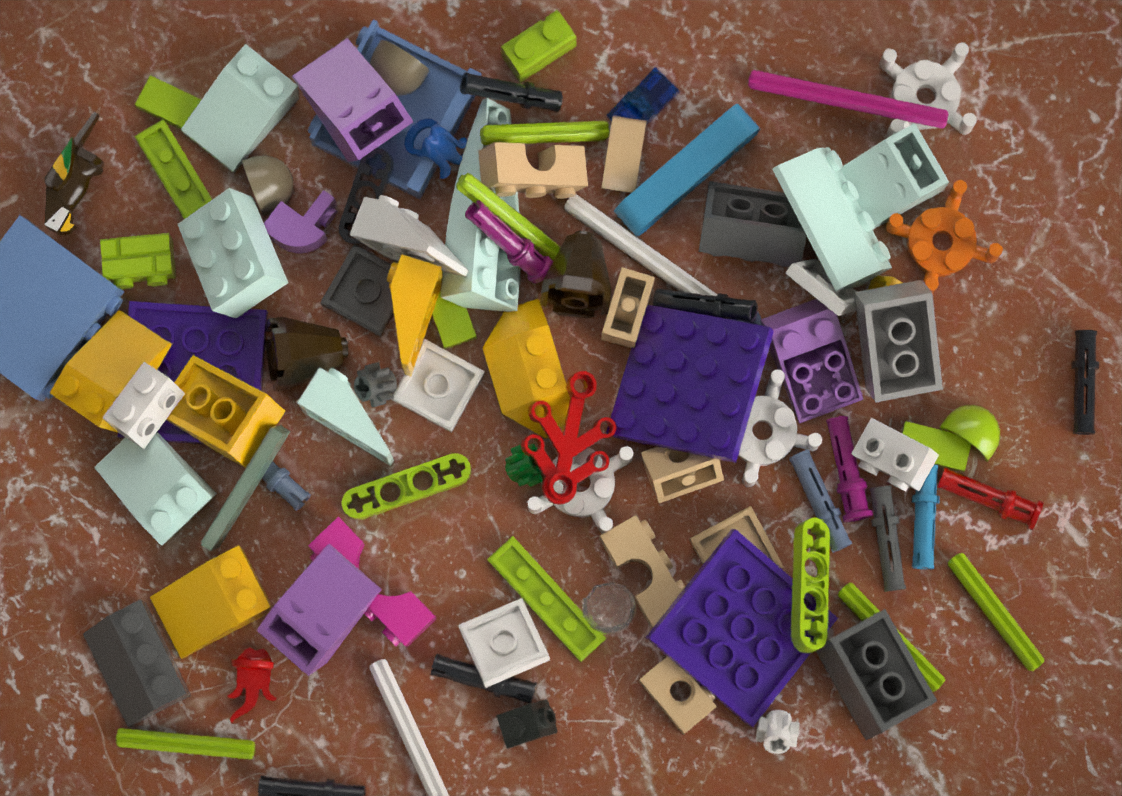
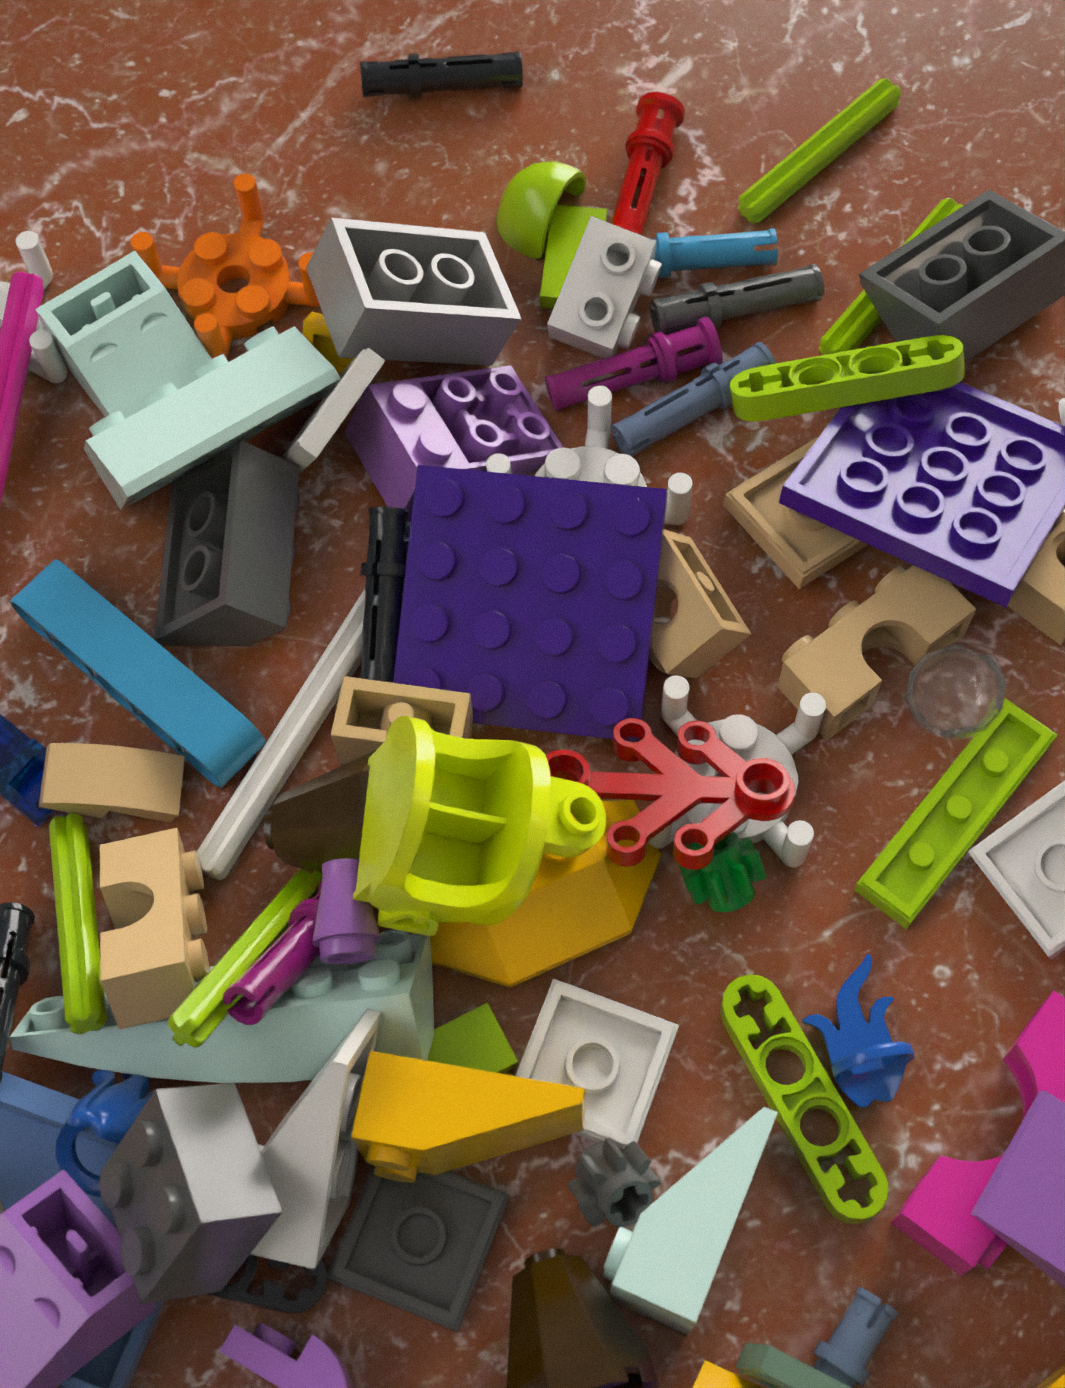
camera: 95 degrees left, 15 degrees down
(387, 177) = (188, 1192): none -> dark grey brick
(424, 520) = (862, 1052): none -> blue piece
(516, 264) = (344, 926): none -> medium lavender cone
(548, 323) = (463, 827): none -> neon yellow animal

